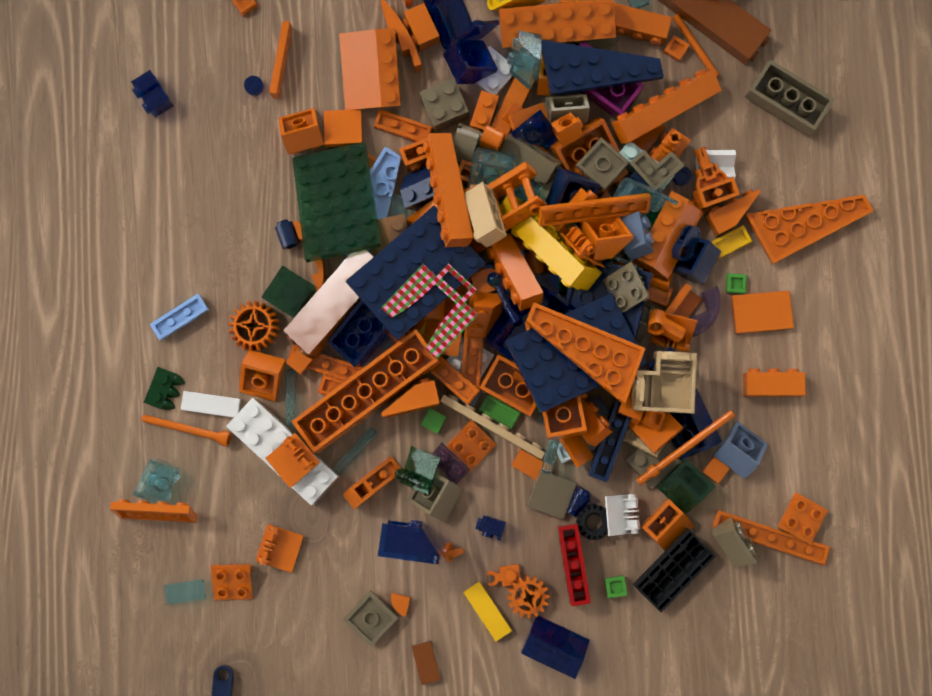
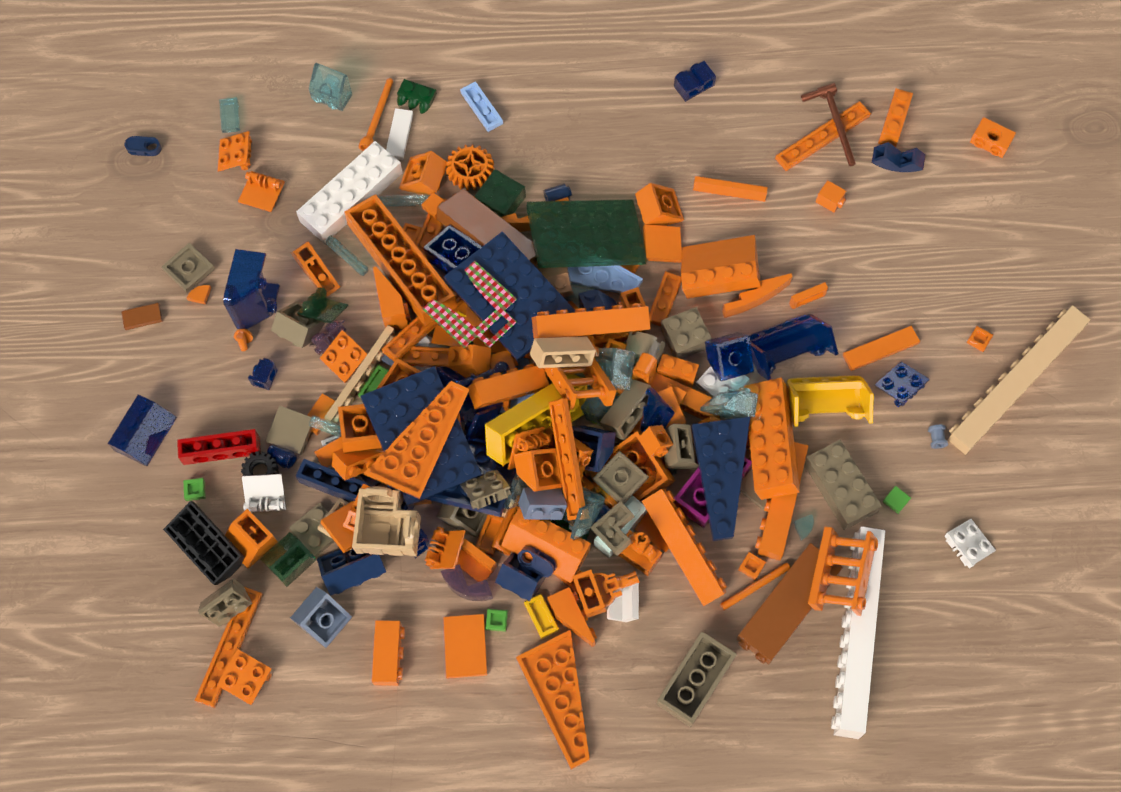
camera: 85 degrees right, 15 degrees down
(159, 512) = (303, 85): orange plate -> none
(253, 85) = (705, 167): clear blue tile -> none
(292, 460) = (338, 193): orange hinge -> none
(421, 26) = (766, 313): orange brick -> none
(433, 420) = (371, 324): bright green tile -> none
(487, 611) = (183, 371): yellow tile -> none
(506, 575) = (216, 390): orange plate -> none
(521, 599) = (197, 406): orange gear -> none
(654, 470) = (305, 526): orange bar -> none
(659, 324) = (451, 529): orange piece -> none
(682, 177) = (614, 565): clear blue tile -> none
(715, 470) = (301, 591): orange tile -> none

